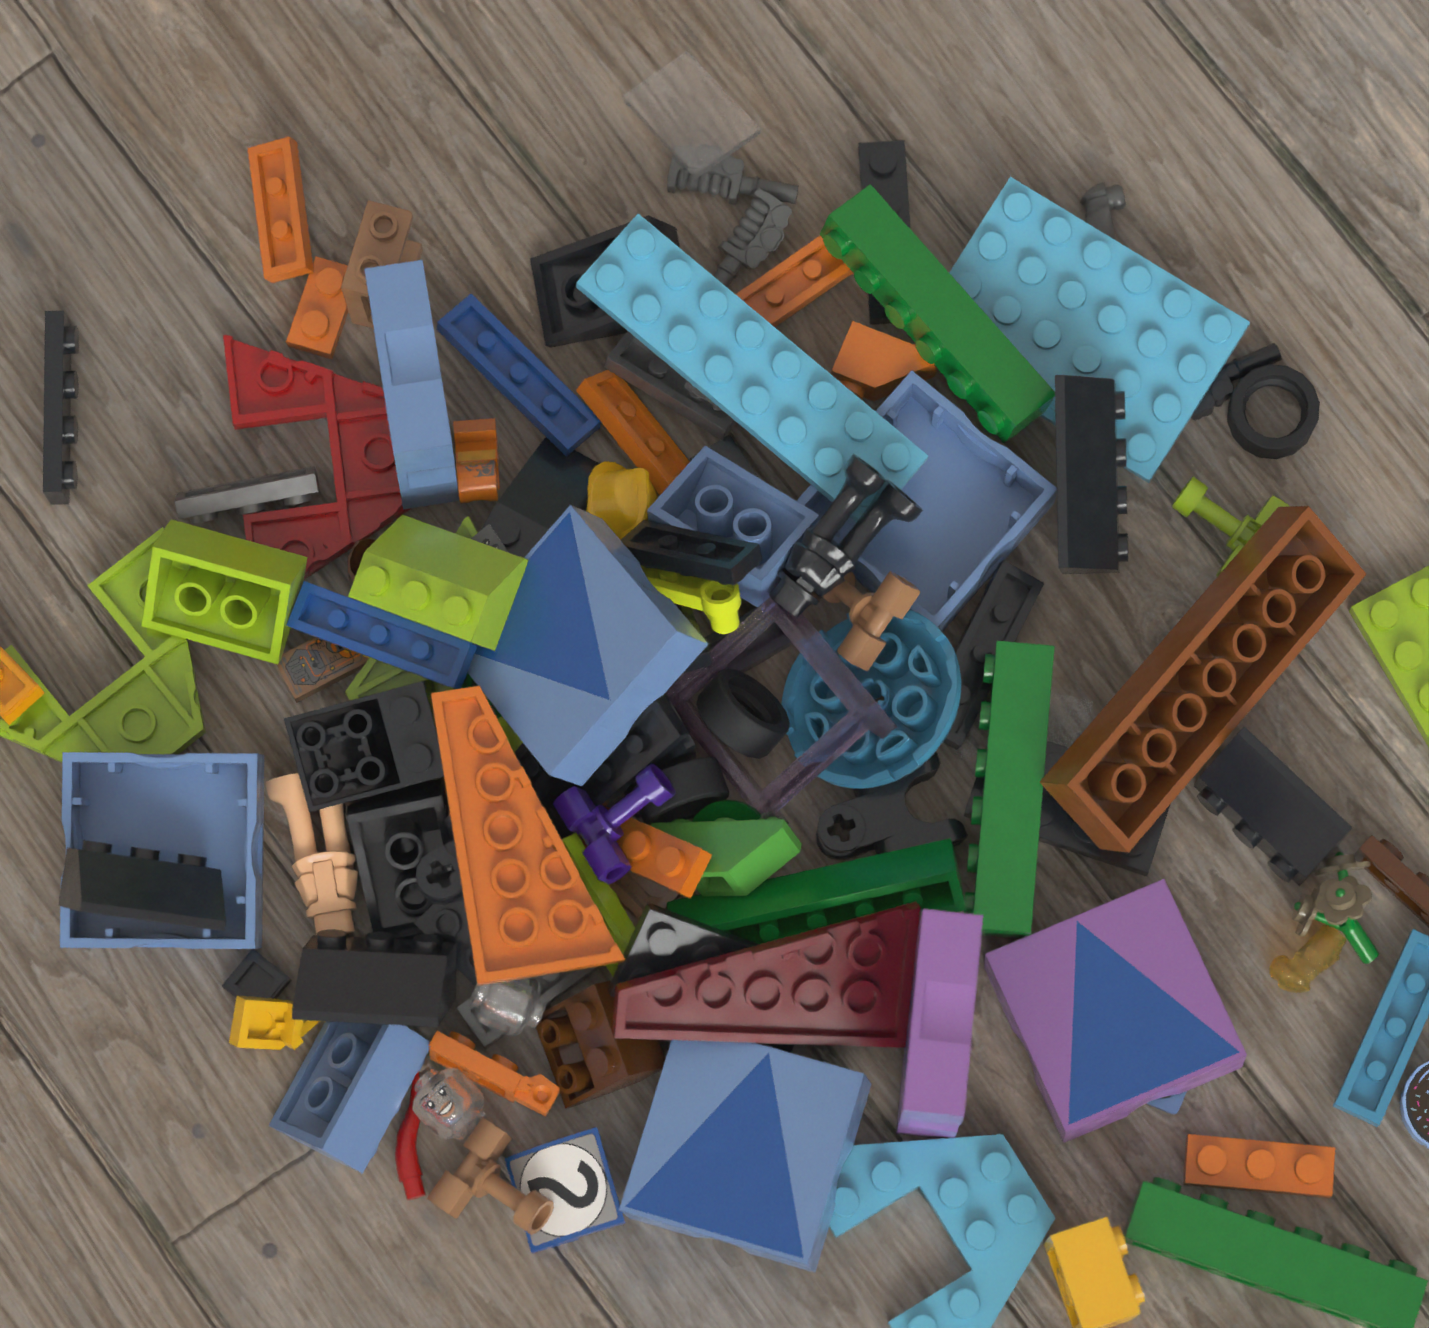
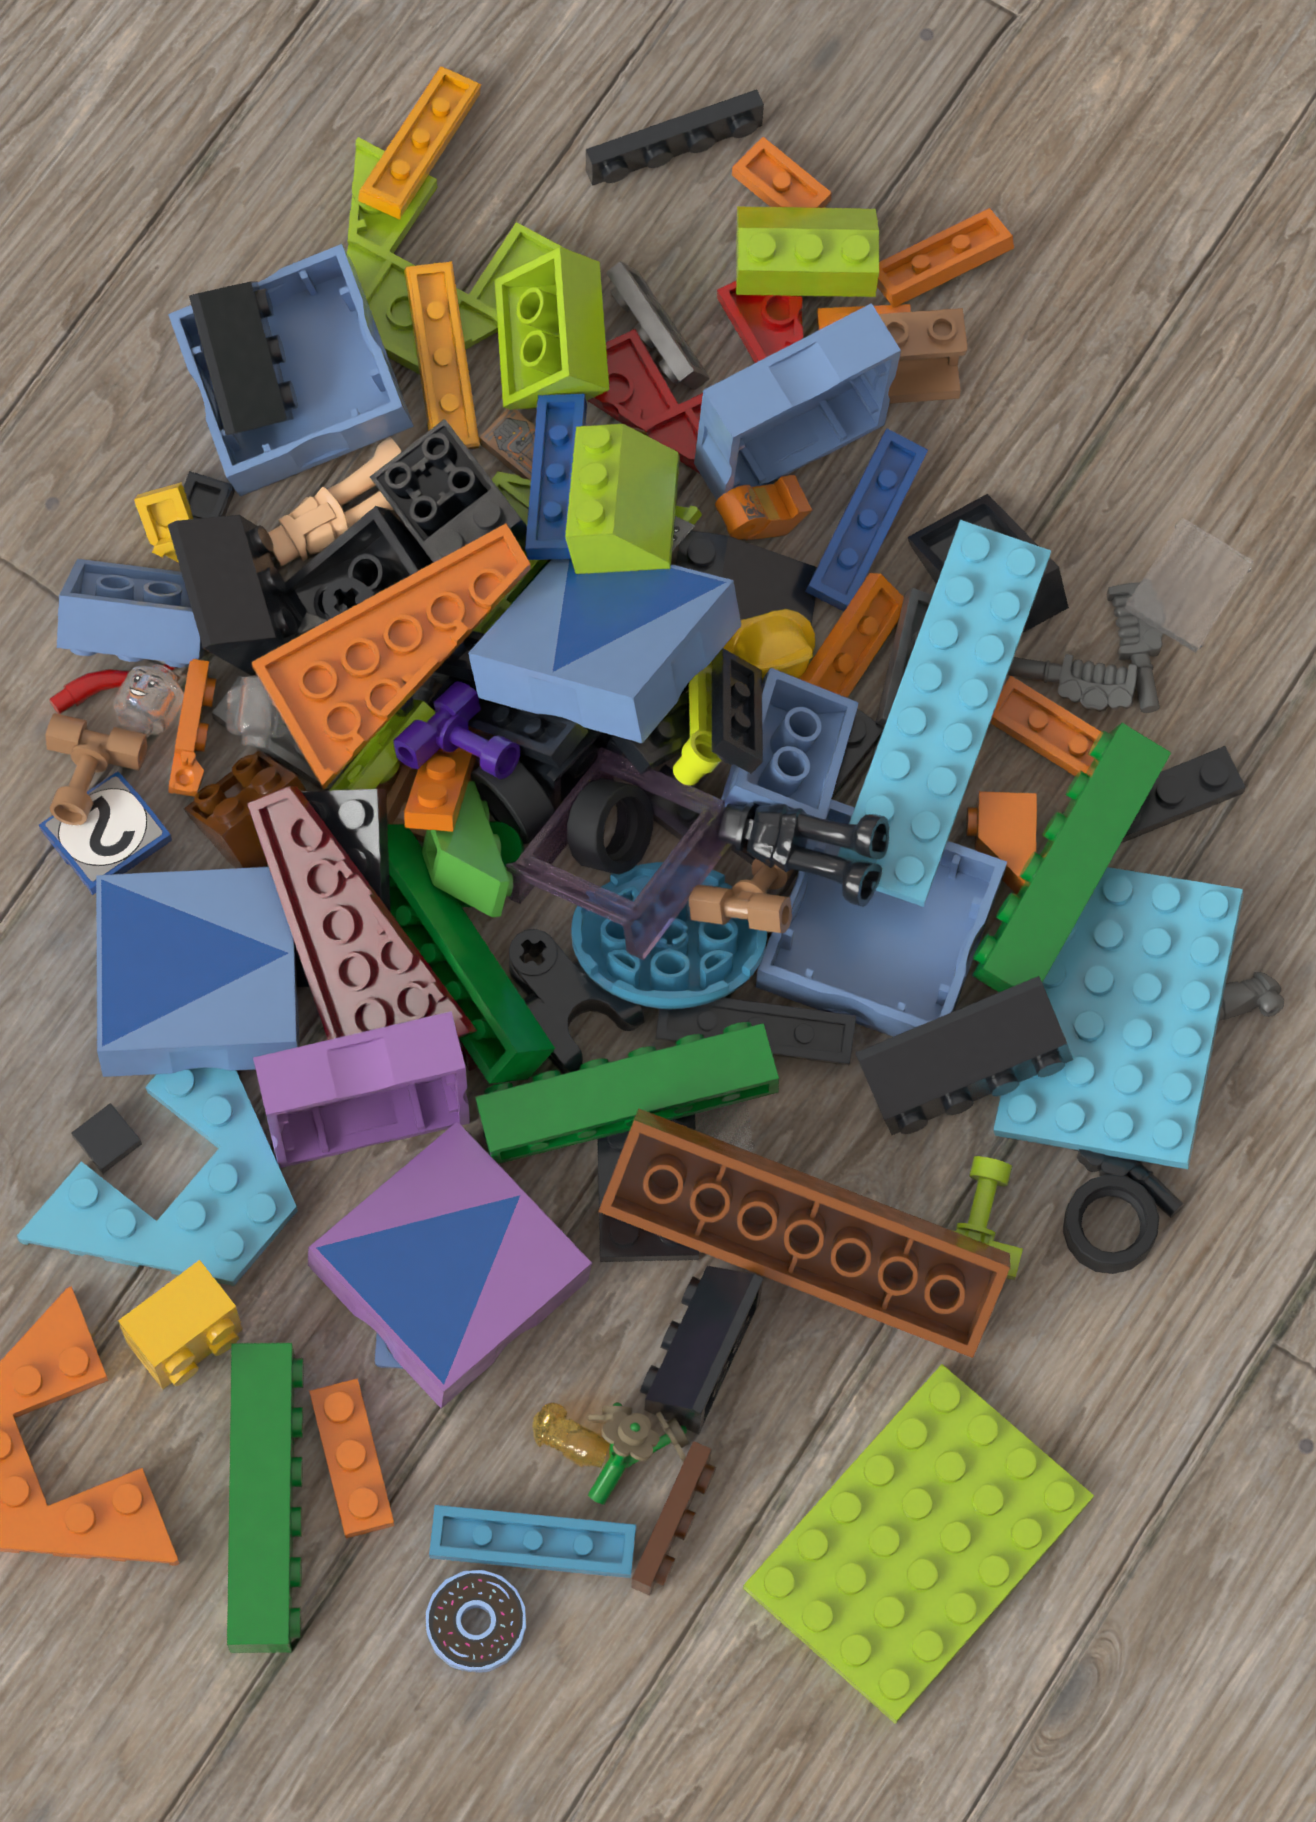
camera: 65 degrees right, 5 degrees down
(144, 327) = (778, 178): none -> orange plate
(200, 703) = (441, 349): none -> light orange tile
(230, 324) = (807, 251): none -> lime slope
(871, 1290) = (106, 1138): none -> black tile

